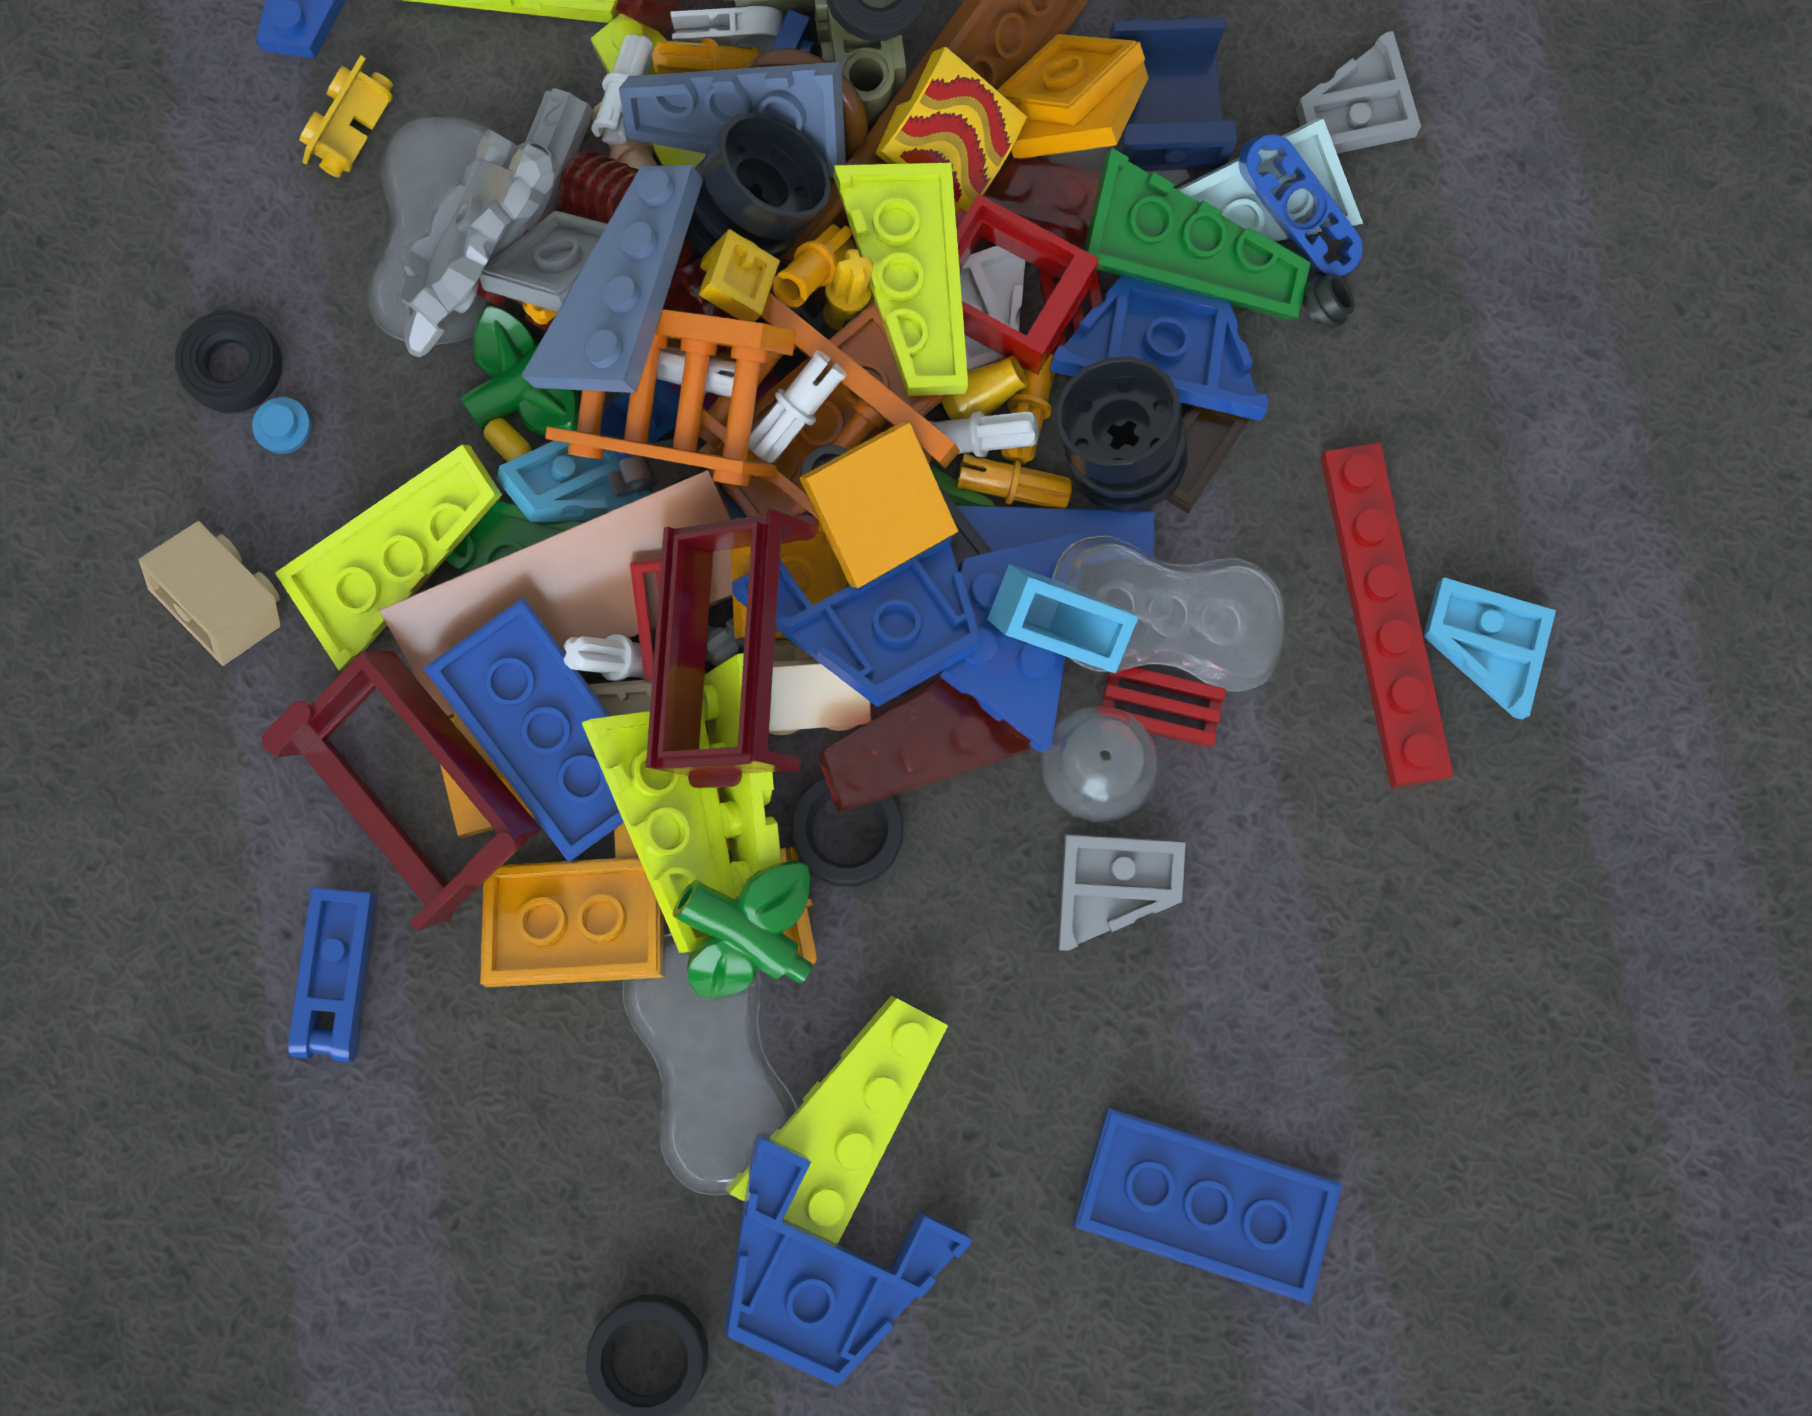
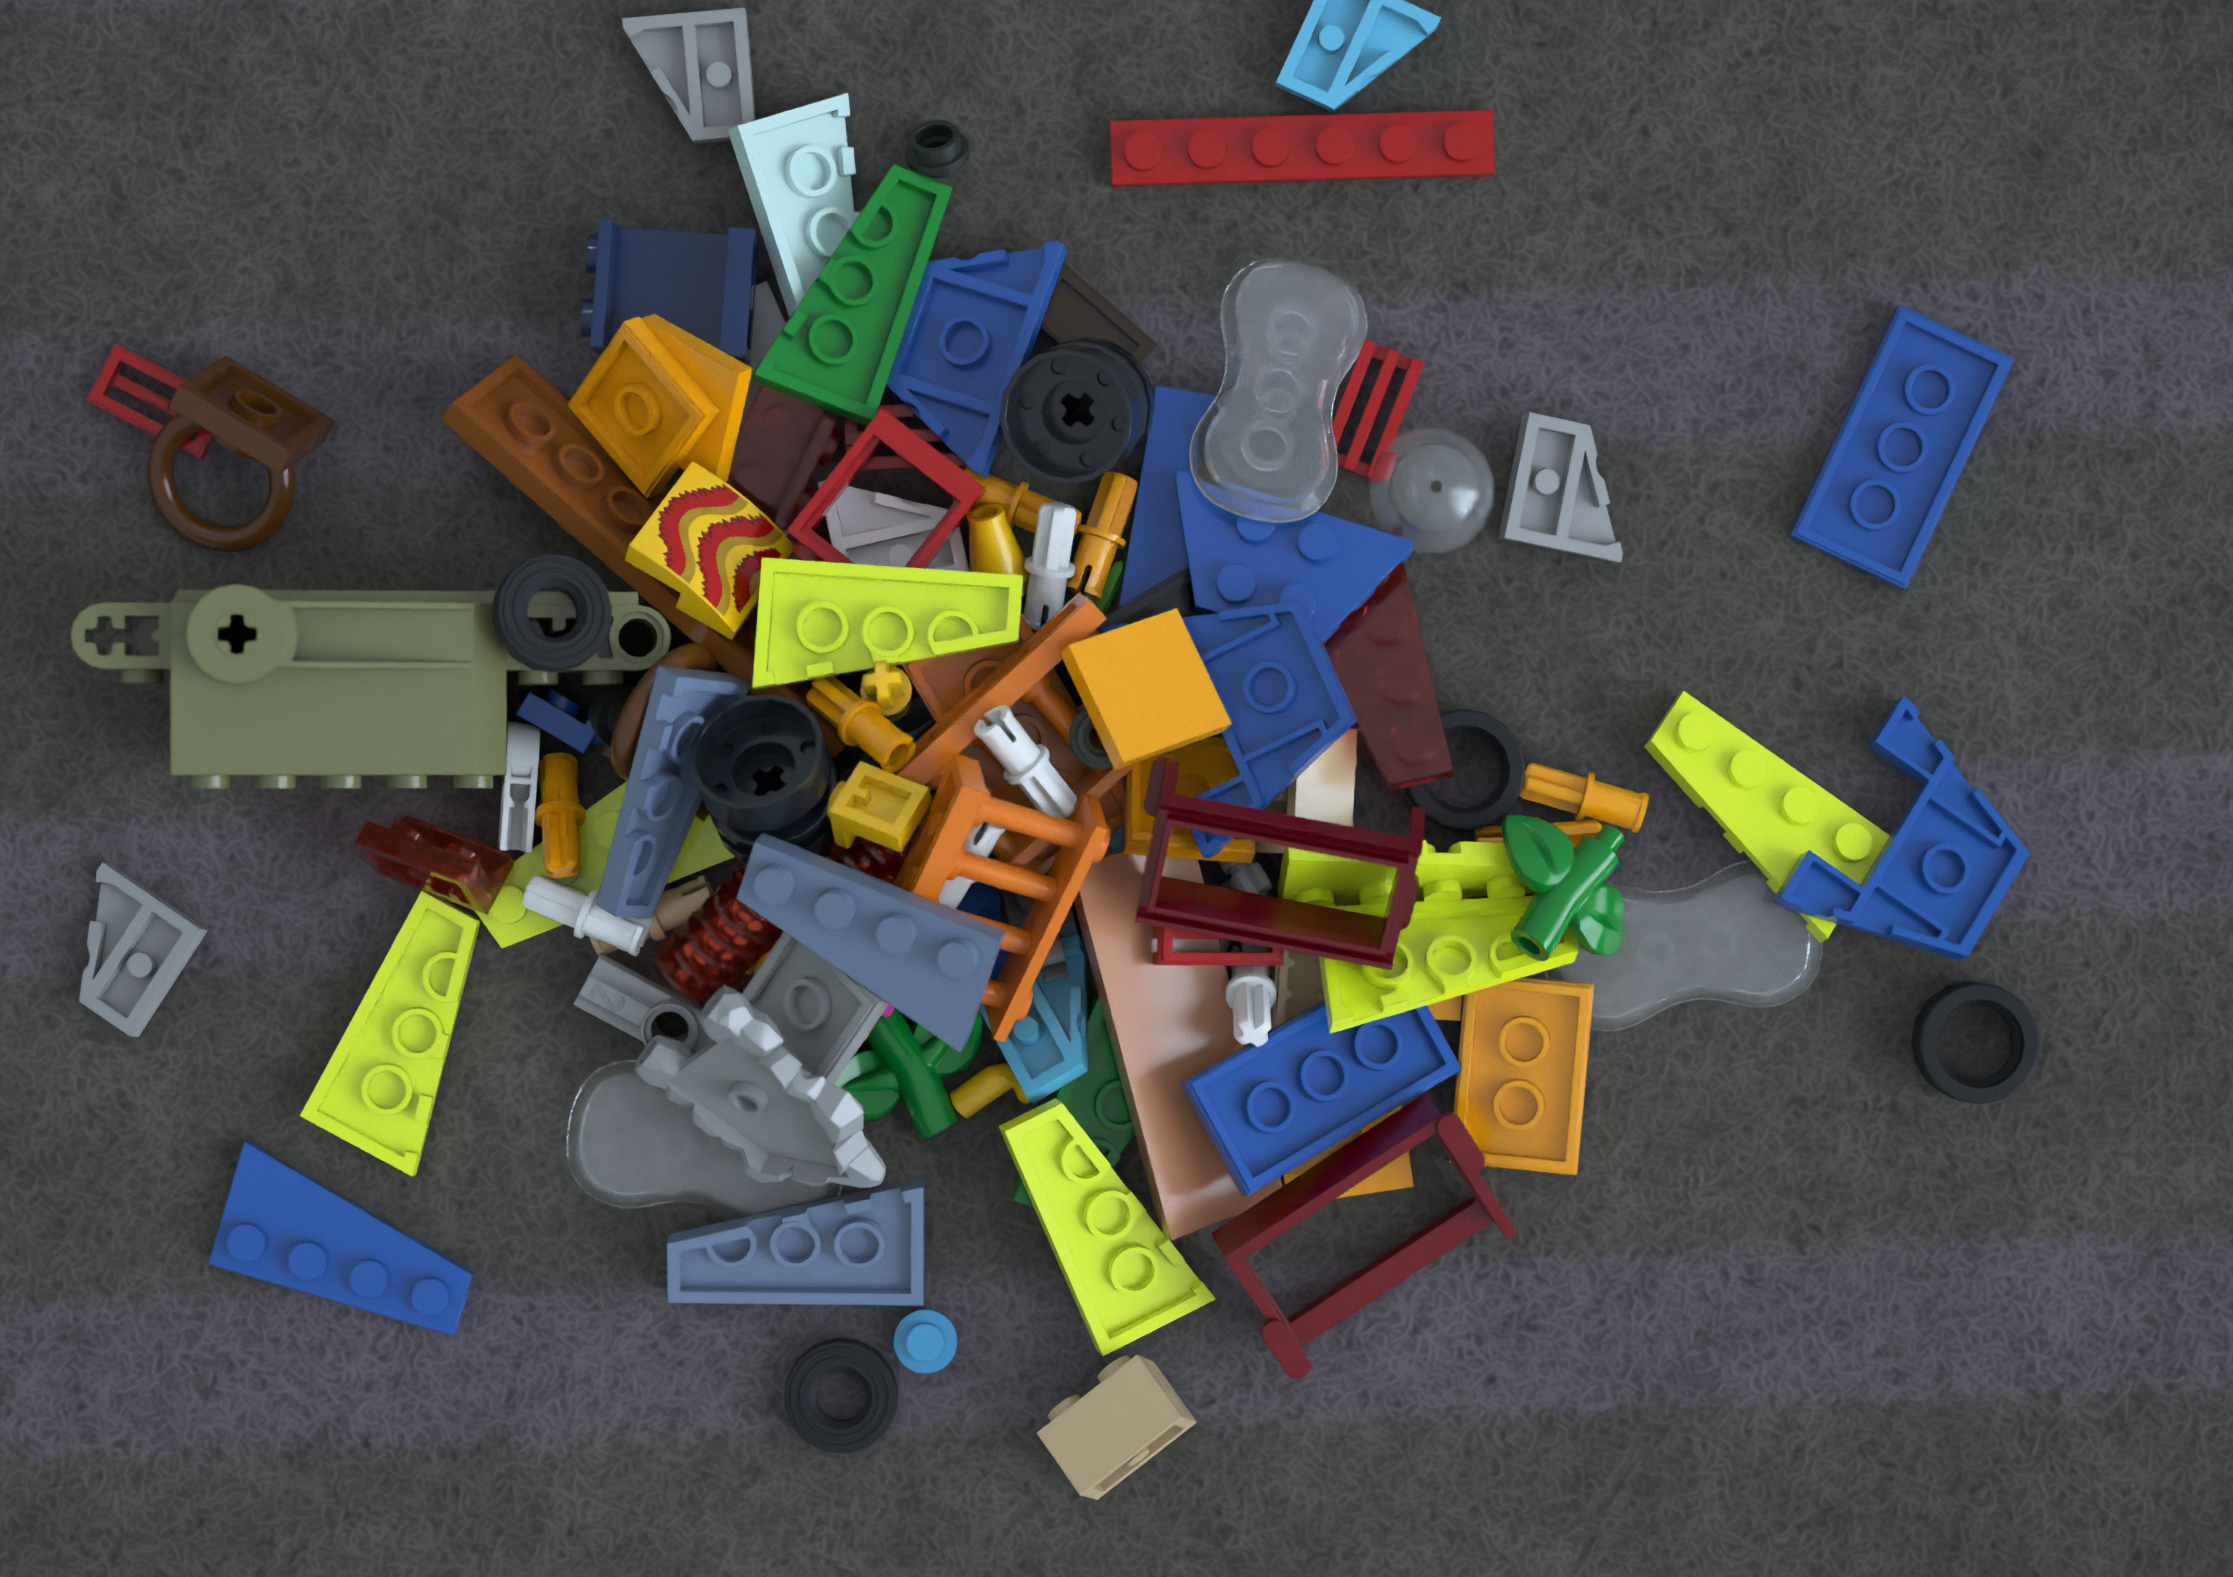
camera: 80 degrees left, 10 degrees up
(332, 973) = (1540, 1331): blue plate -> none
(350, 323) = (814, 1253): none -> sand blue wing
(354, 98) = (542, 1232): yellow hinge -> none
(837, 944) = (1584, 796): none -> light orange axle
(1061, 619) = (1290, 514): medium azure slope -> none
(1324, 206) = (802, 165): blue beam -> none

